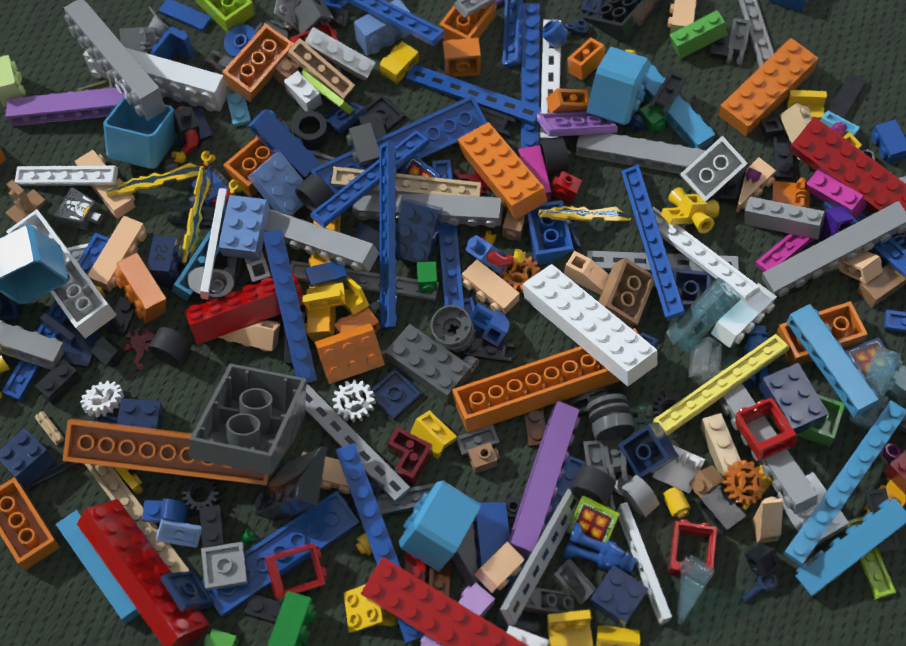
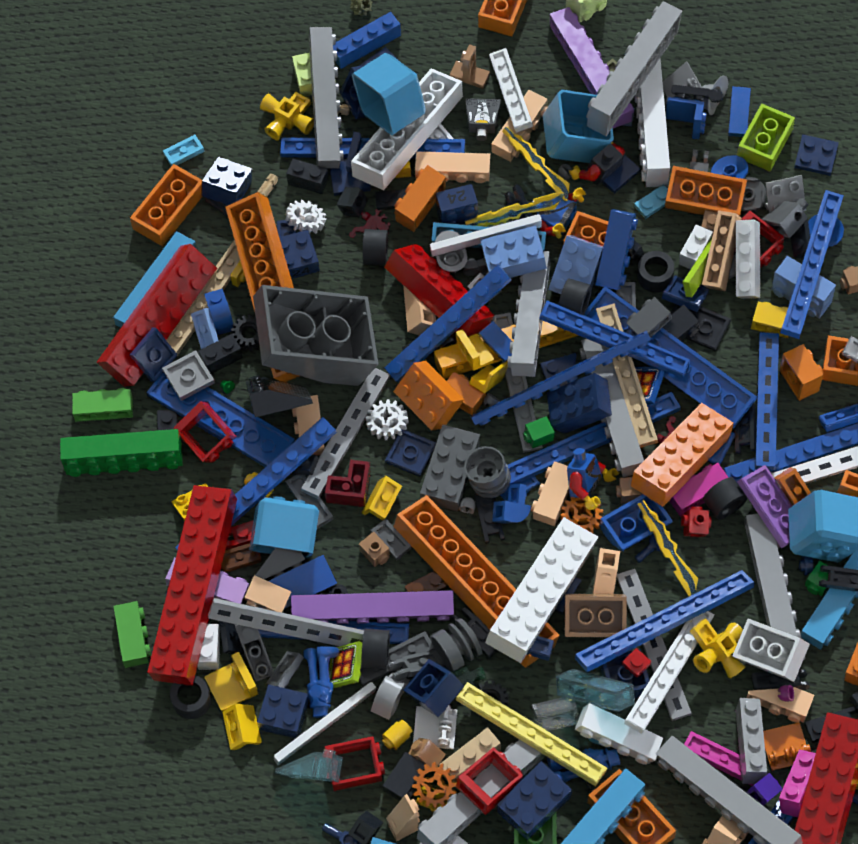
camera: 70 degrees right, 0 degrees up
(160, 28) = (697, 93): none -> black hinge
(687, 274) = (636, 663): none -> red plate

